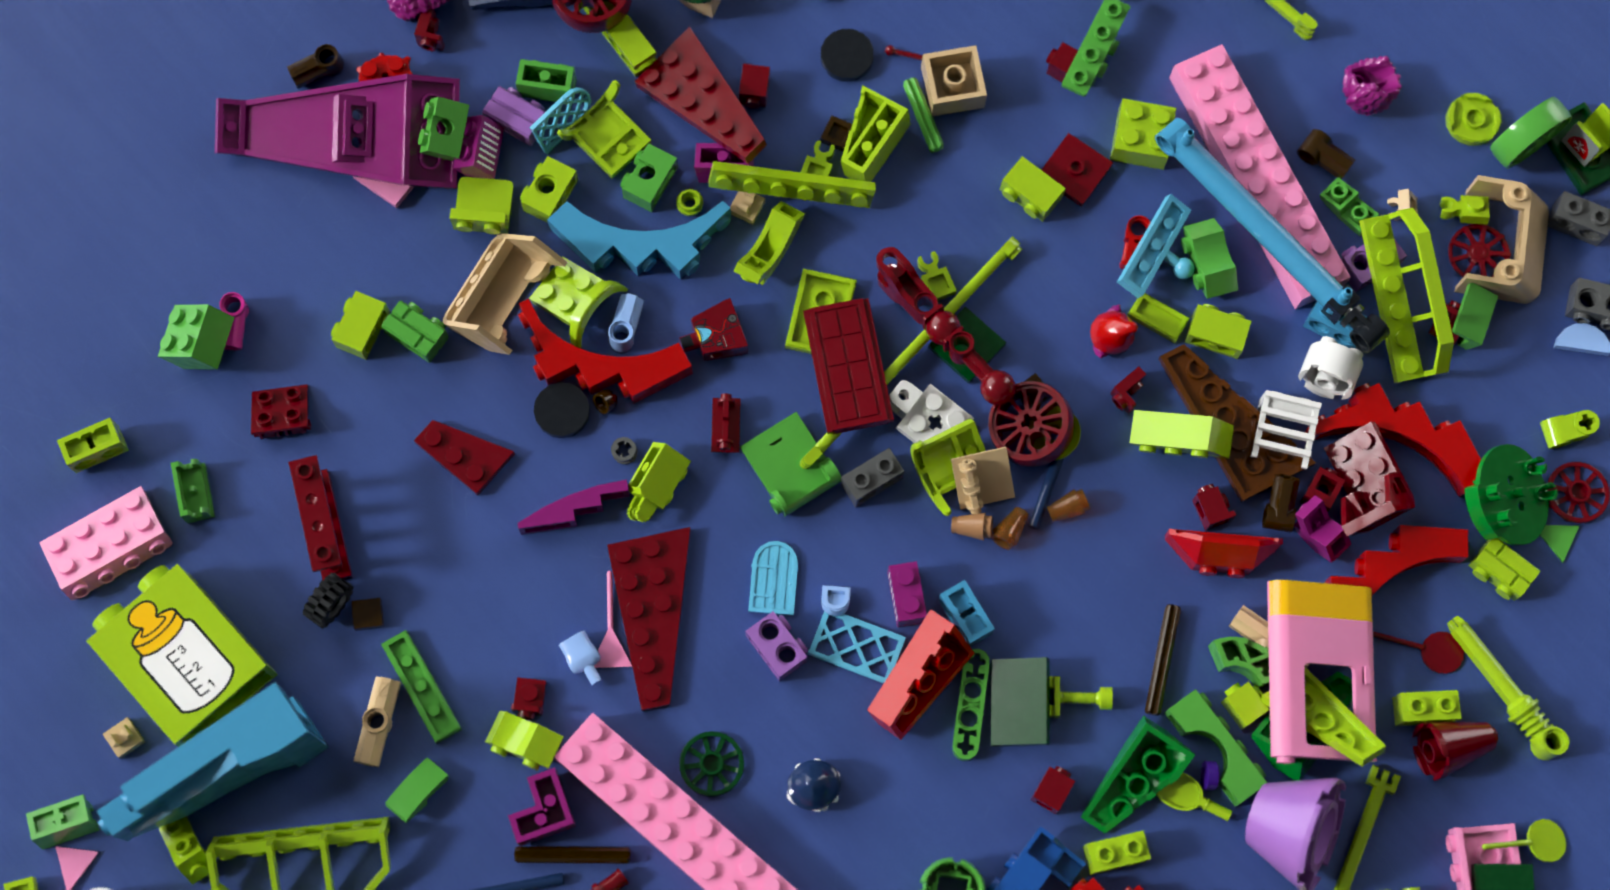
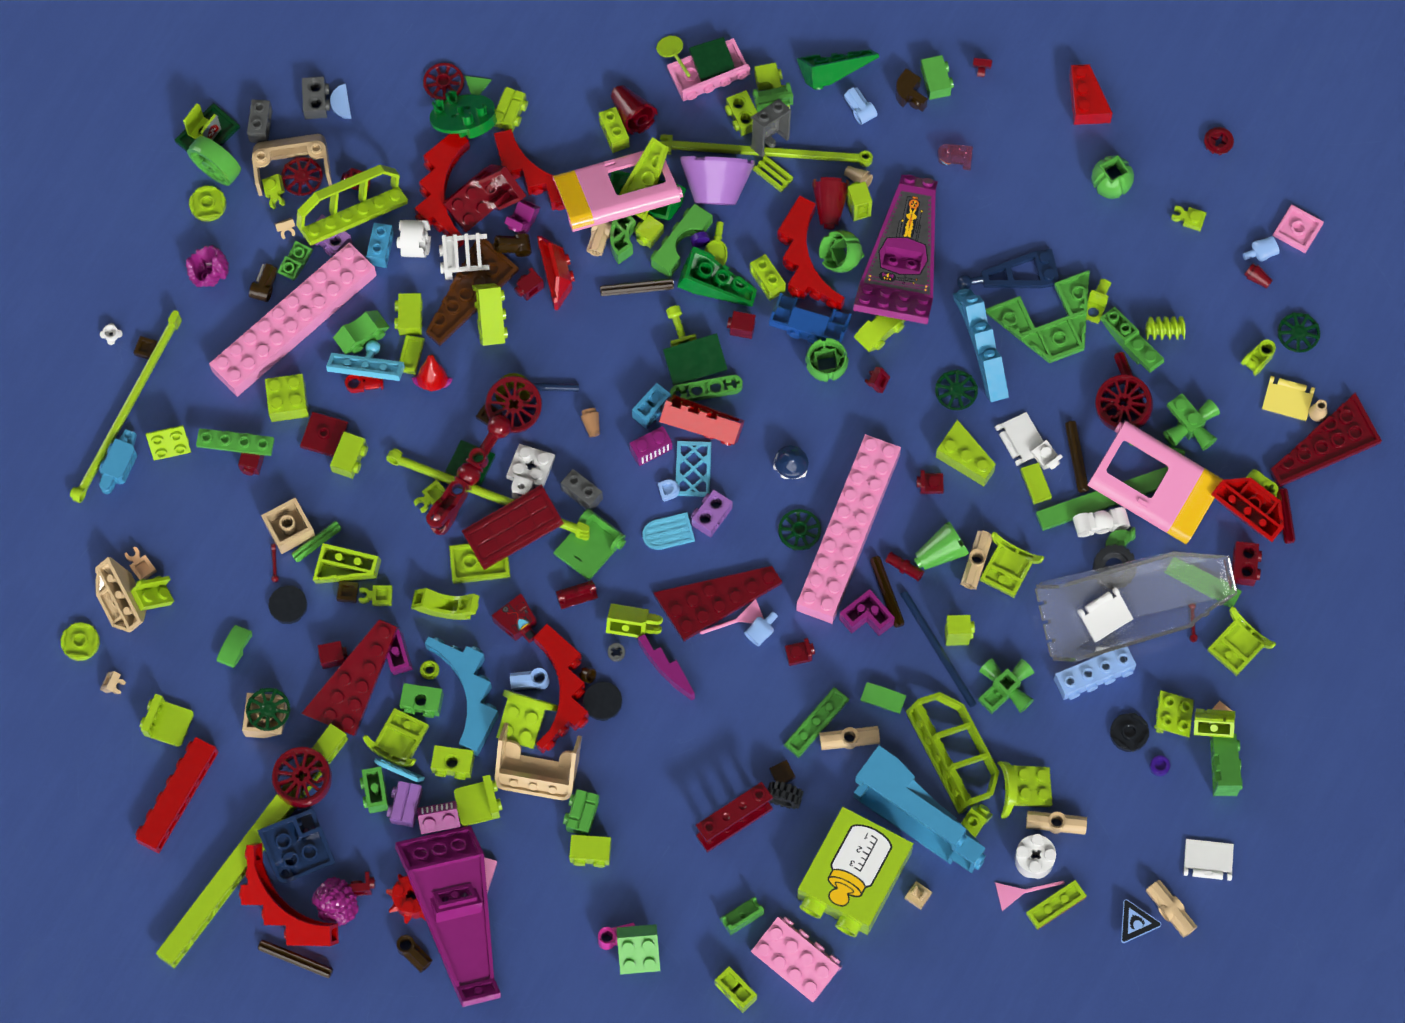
camera: 105 degrees left, 5 degrees down
(61, 822) = (985, 908): bright green hinge -> none
(280, 411) = (667, 880): dark red hinge -> none
(454, 117) = (430, 841): bright green brick -> none
(464, 455) = (655, 752): dark red wing -> none
(524, 740) = (827, 643): lime brick -> none
(747, 206) = (418, 632): tan tile -> none
(791, 184) = (400, 607): lime plate -> none
(934, 457) = (555, 447): lime piece -> none
(982, 479) = (560, 424): tan hinge -> none
(1010, 528) = (585, 399): clear orange cone -> none
(1069, 506) = (558, 369): clear orange cone -> none
(1131, 385) = (465, 356): dark red bracket -> none
(1327, 479) = (493, 218): dark red brick -> none
(1337, 301) = (372, 241): dark azure piece -> none
(1439, 650) = (574, 133): dark red piece -> none
(1474, 316) = (348, 164): bright green panel -> none
(1520, 707) = (594, 78): lime piece -> none
(1566, 429) = (404, 94): lime piece -> none

